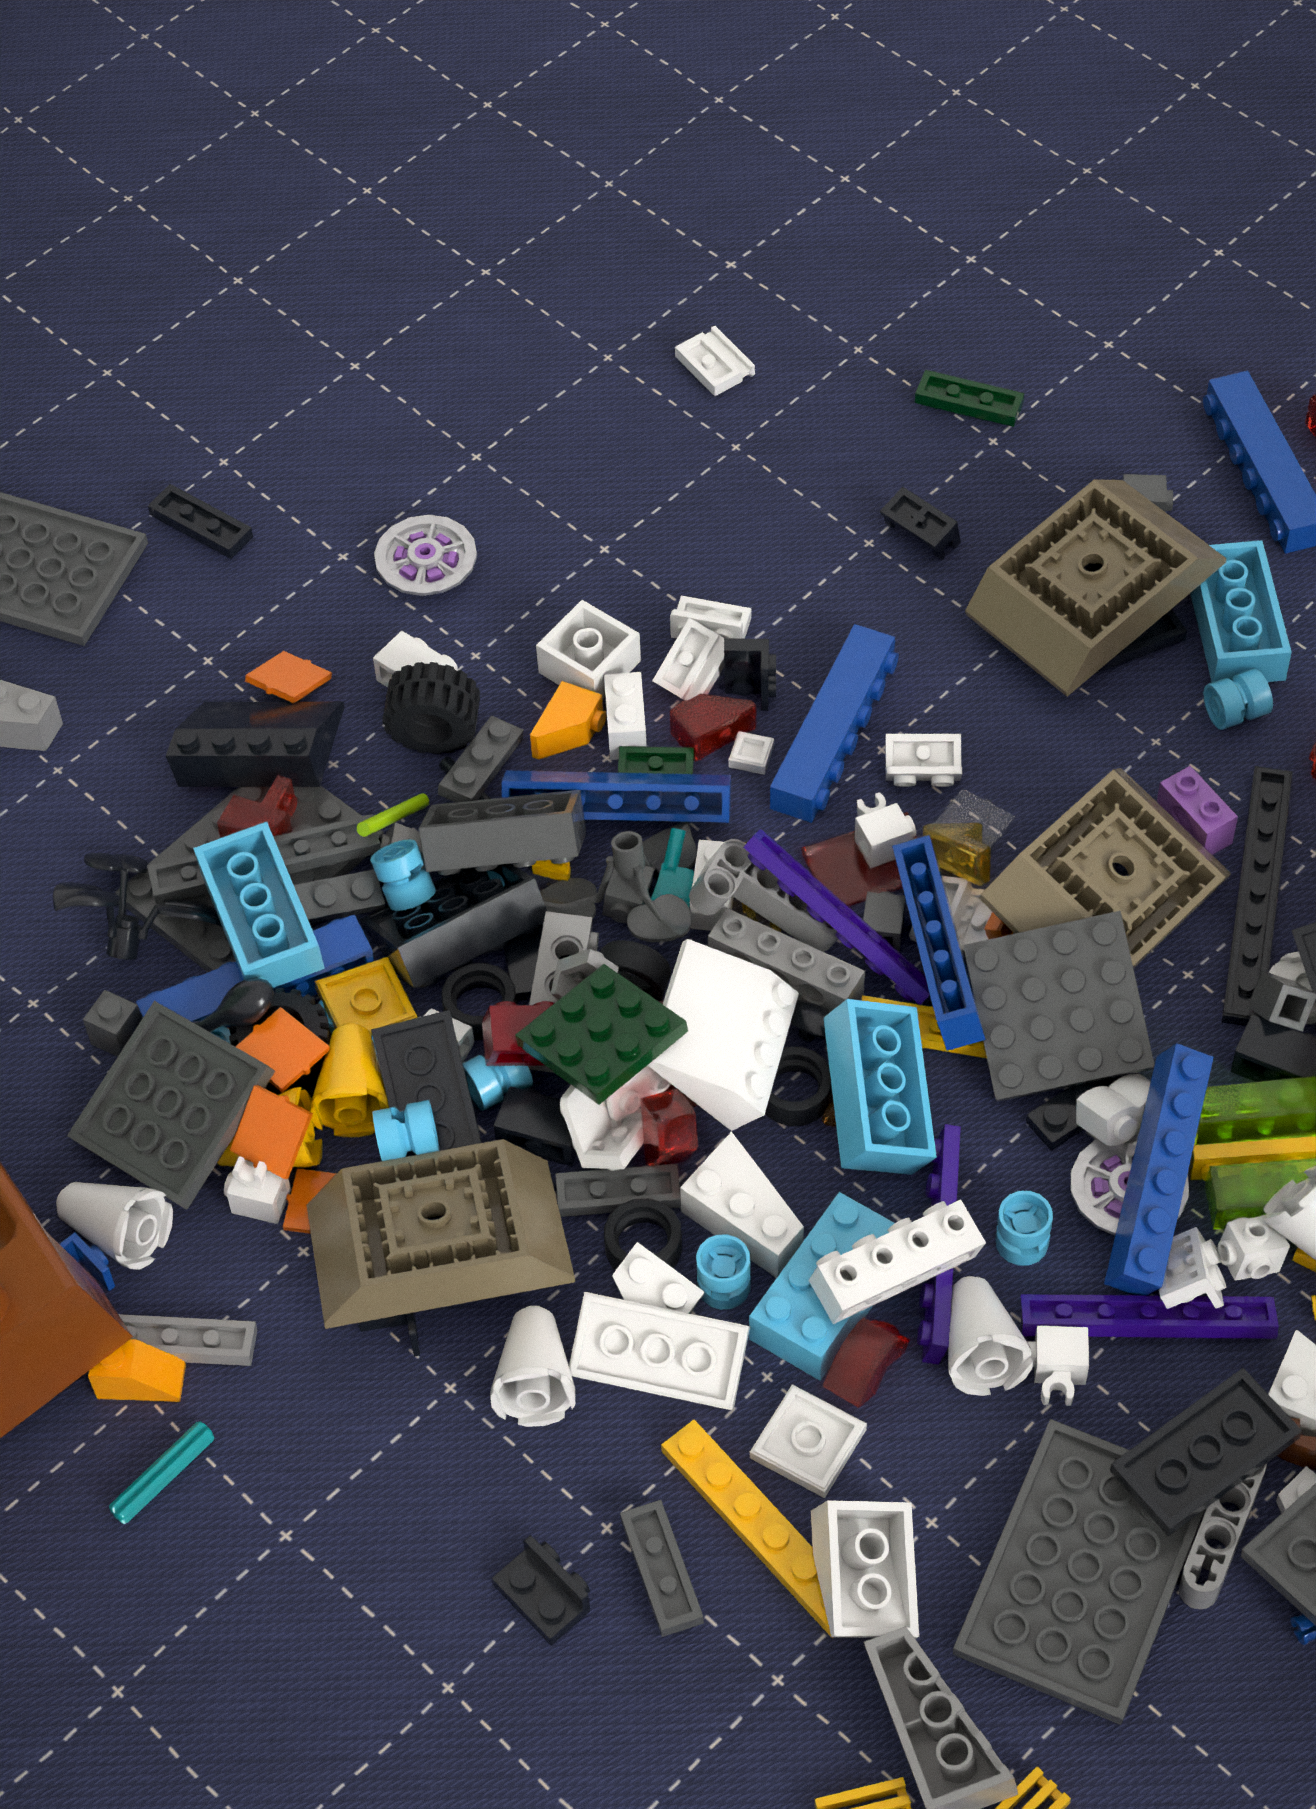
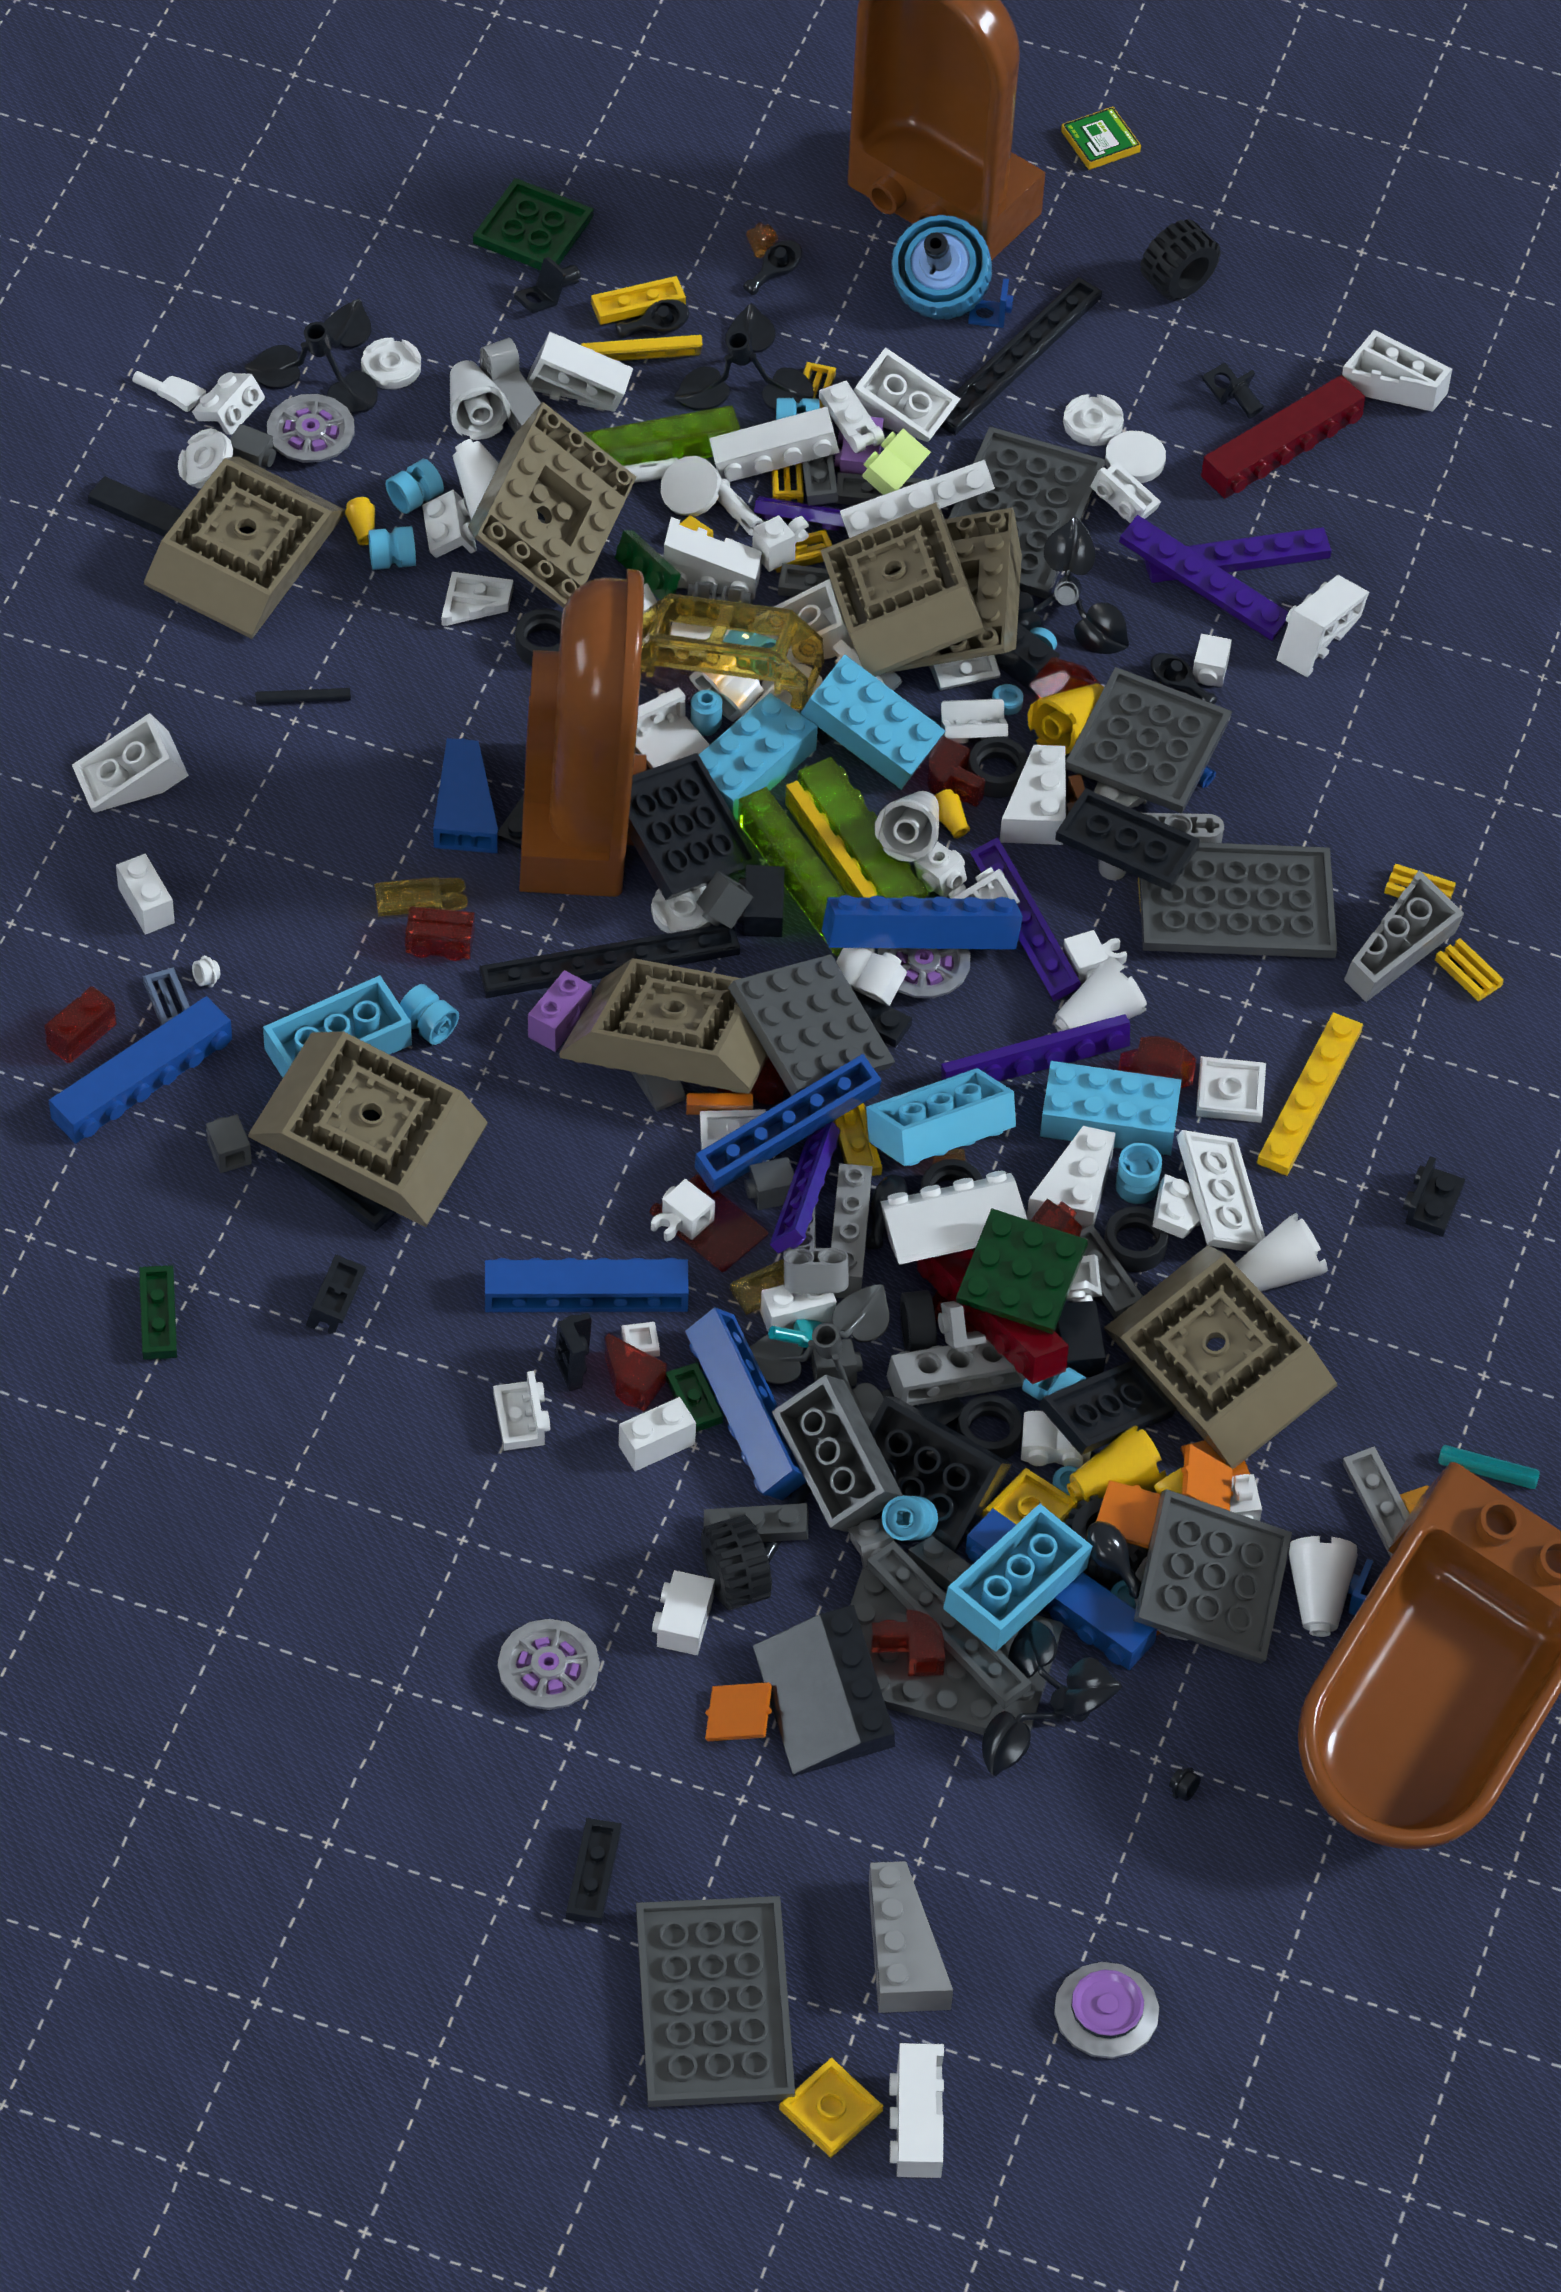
camera: 120 degrees left, 0 degrees up
(111, 1022) = (1154, 1670): dark grey brick -> none
(392, 815) = (855, 1550): lime bar -> none
(405, 1130) = (1155, 1401): medium azure wheel -> none
(567, 721) = (683, 1478): light orange slope -> none
(586, 648) = (607, 1482): white brick -> none
(661, 1568) = (1377, 1135): dark grey plate -> none
(692, 662) = (578, 1401): white plate -> none
(714, 361) = (198, 1529): white plate -> none
(866, 1567) = (1313, 1009): white slope -> none
(895, 1260) = (1090, 1046): white brick -> none
(923, 759) = (596, 1209): white bracket -> none
(961, 850) = (681, 1154): clear yellow slope -> none
(973, 809) = (637, 1166): clear piece -> none
(1024, 1228) = (999, 1006): medium azure wheel -> none

